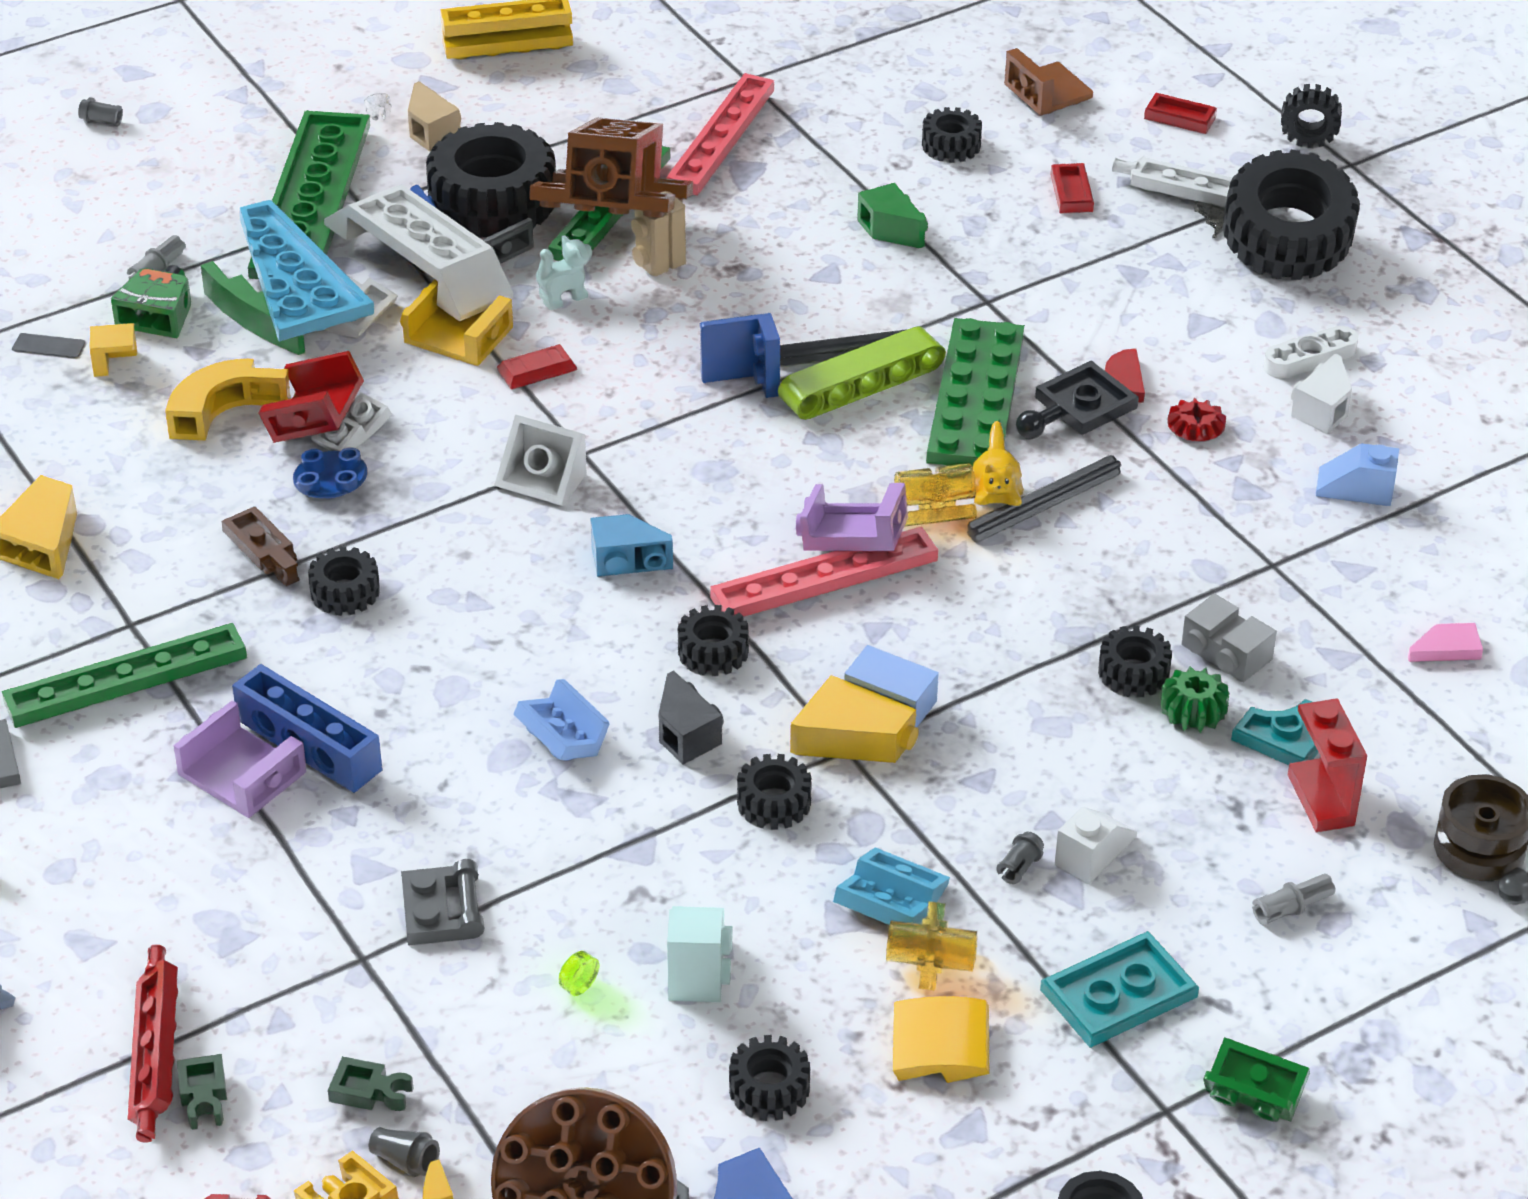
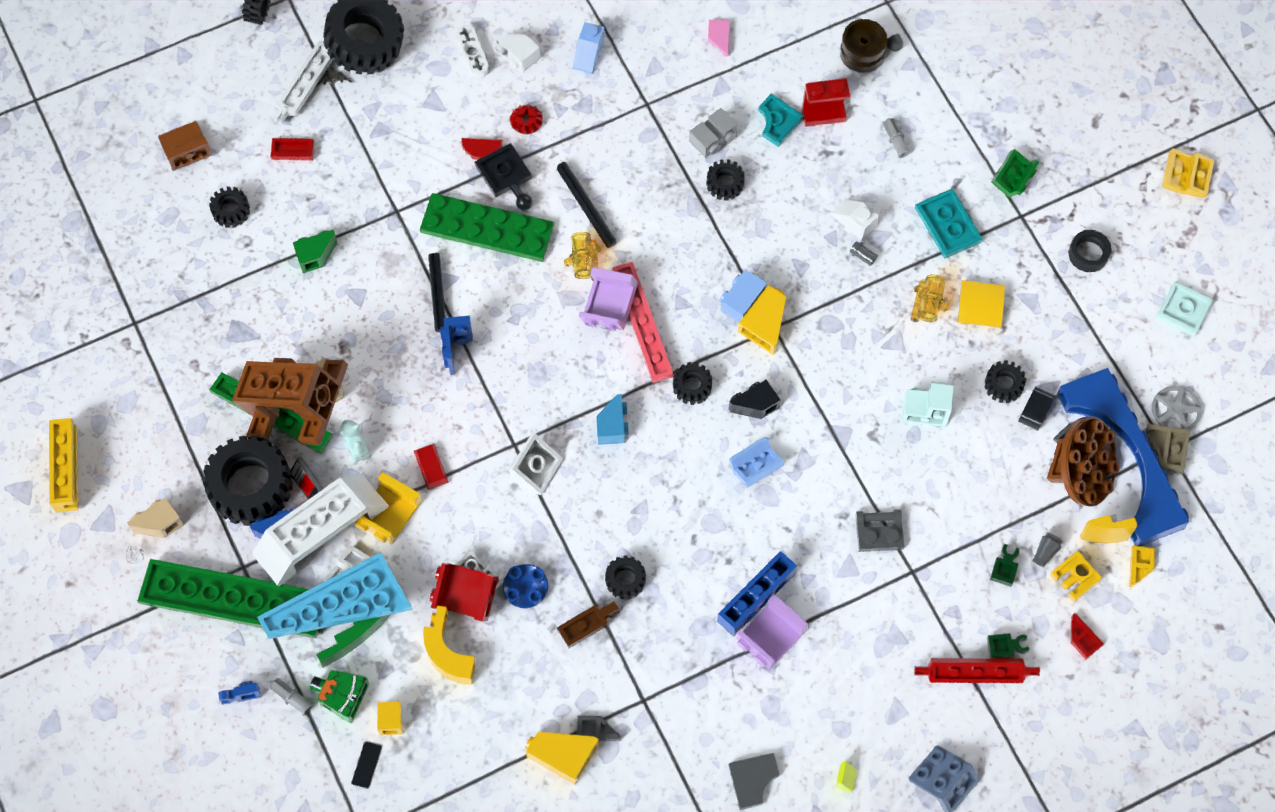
camera: 85 degrees left, 25 degrees up
(82, 569) = (596, 727): none -> dark grey tile
(100, 112) = (107, 742): dark grey pin -> none
(123, 675) = (696, 698): green plate -> none
(165, 215) = (243, 692): none -> blue plate
(578, 973) = (936, 464): clear neon green tile -> none
(713, 1126) = (1036, 408): none -> black beam
(722, 131) = (199, 338): coral plate -> none
(769, 807) = (814, 351): black tyre -> none
(861, 372) = (467, 284): lime beam -> none
(890, 888) = (881, 315): medium azure slope -> none
(997, 473) = (573, 221): yellow animal -> none
(1180, 113) = (222, 77): red tile -> none
(1195, 699) = (753, 150): green gear -> none

